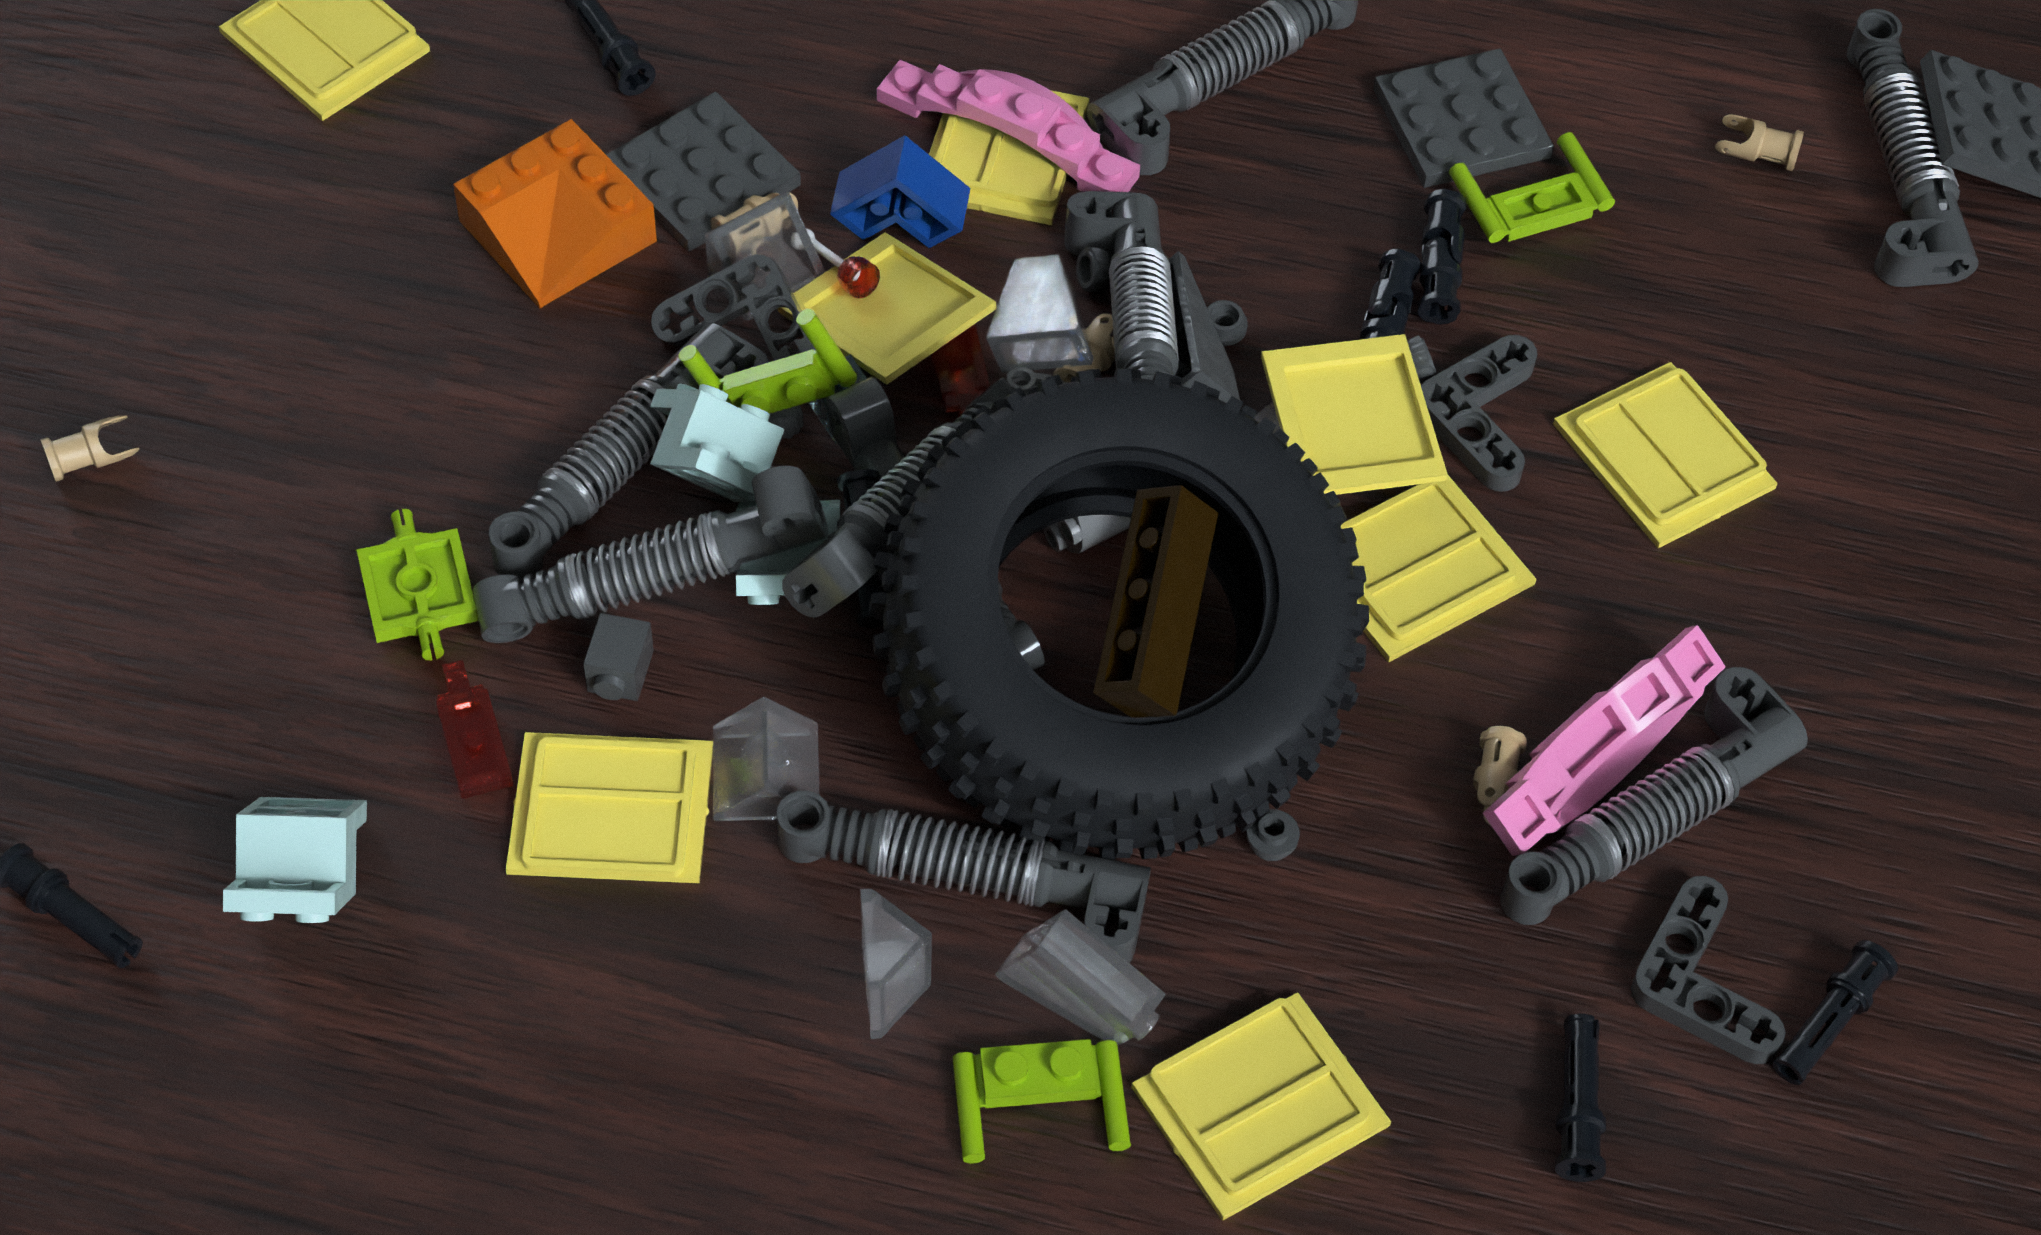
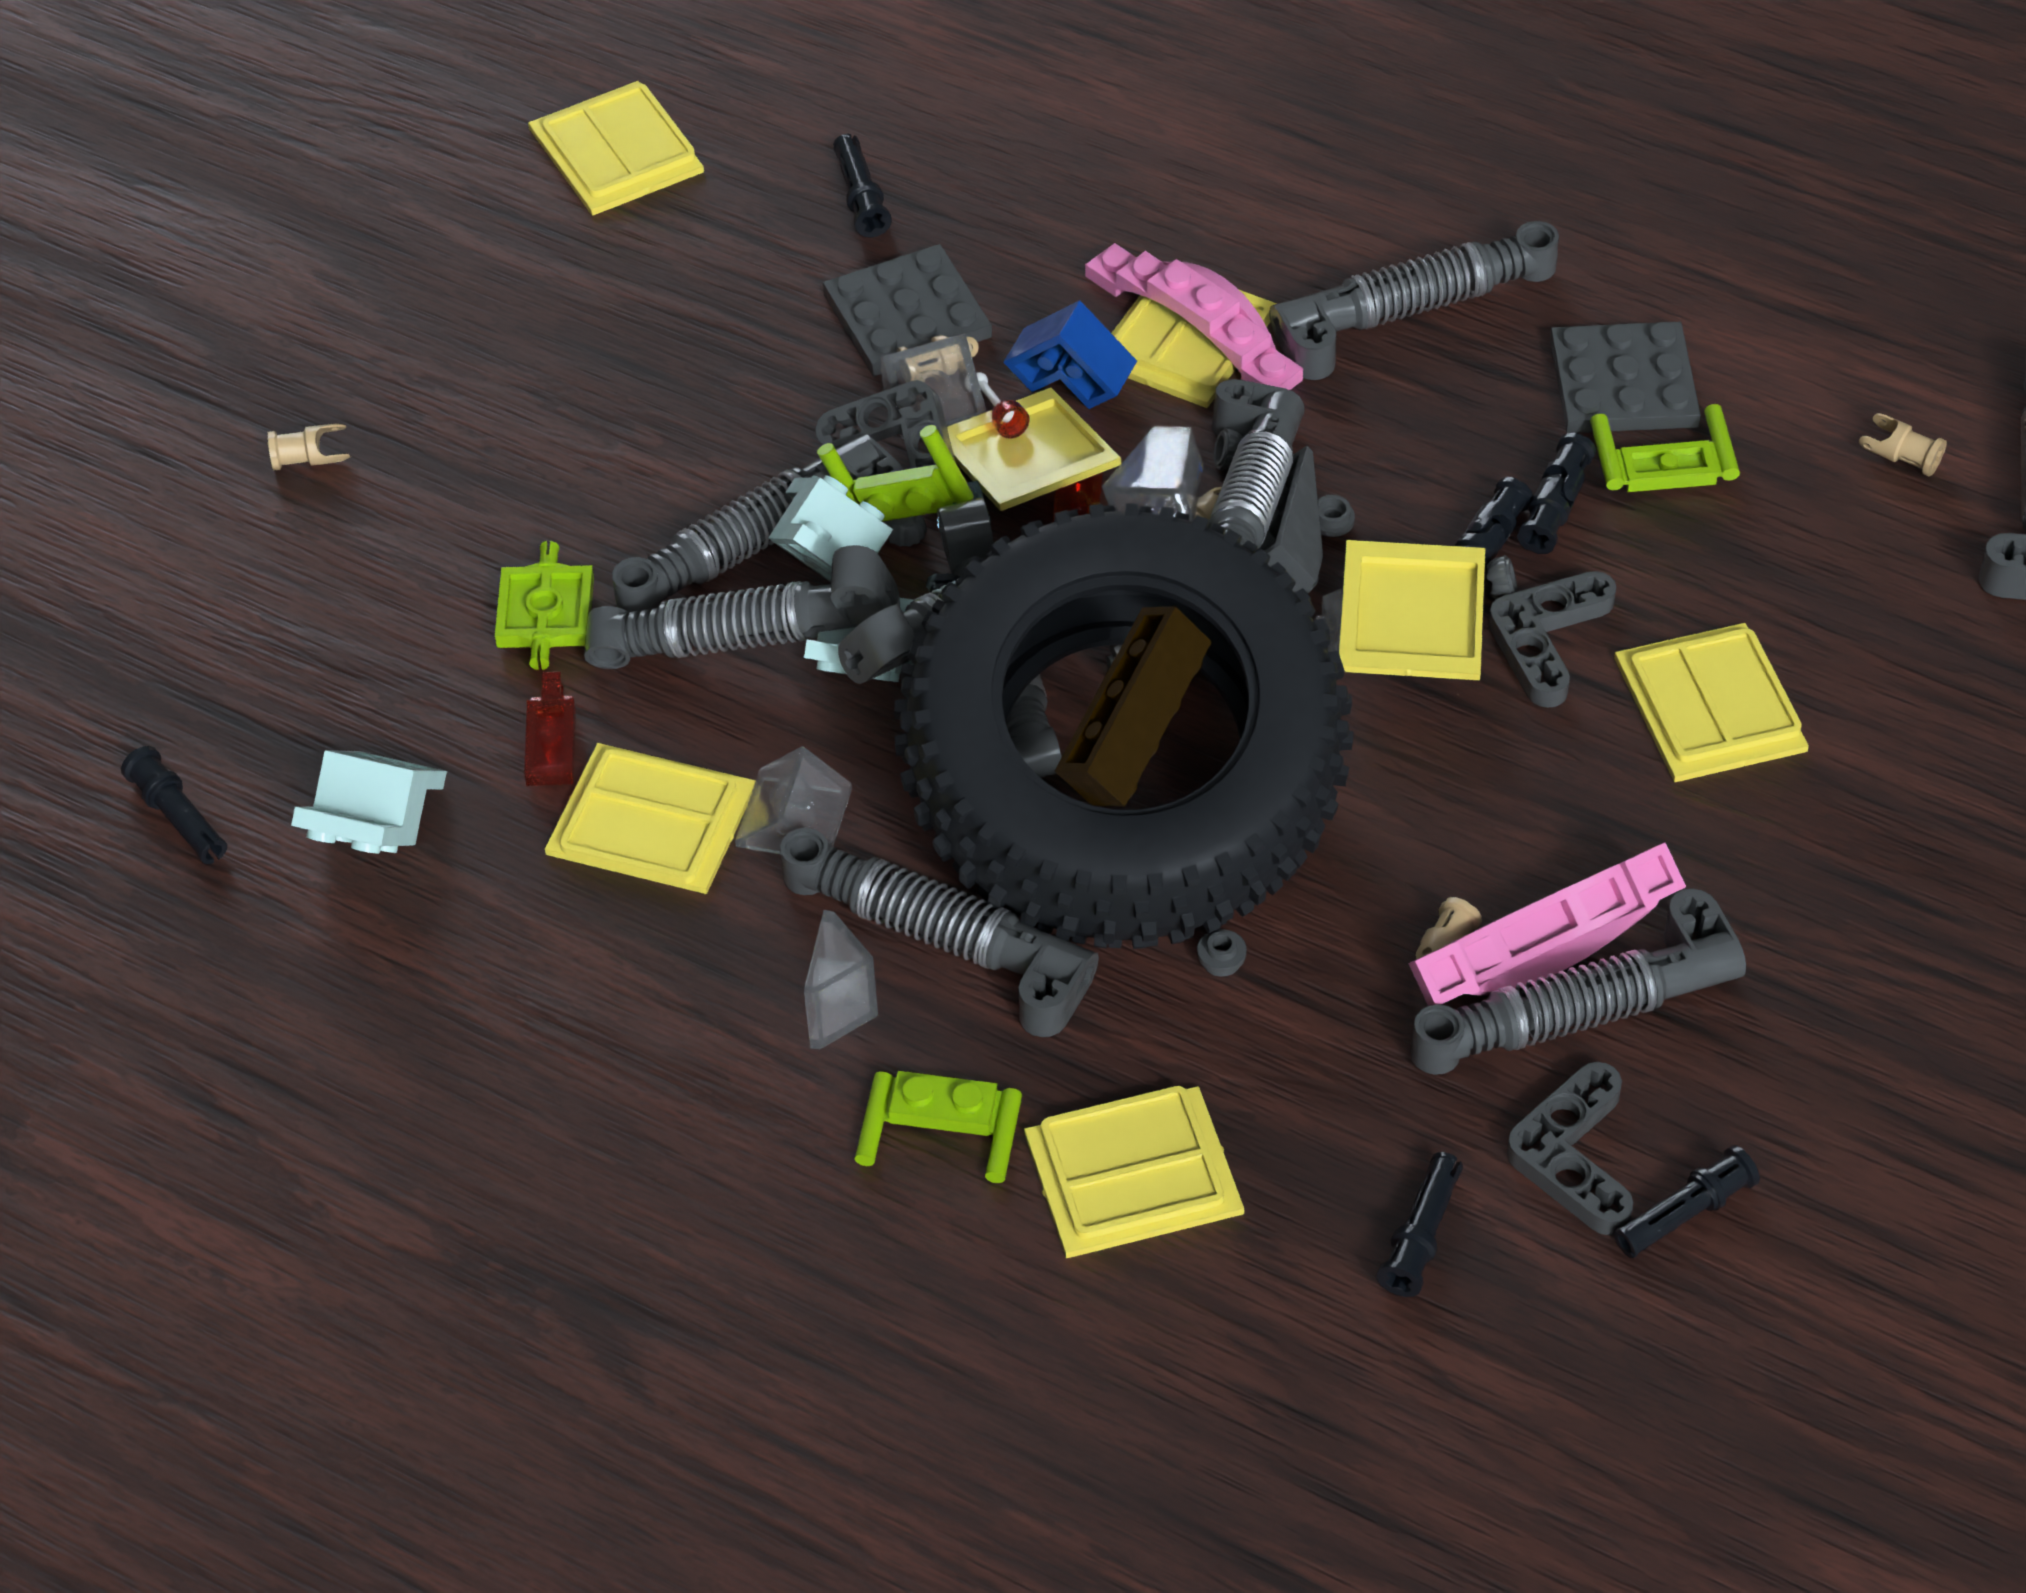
camera: 20 degrees right, 5 degrees down
(555, 213) = (763, 322): orange slope -> none
(618, 657) = (695, 695): dark grey brick -> none
(1082, 980) = (1005, 1032): clear slope -> none
(1430, 566) = (1441, 754): light yellow piece -> none

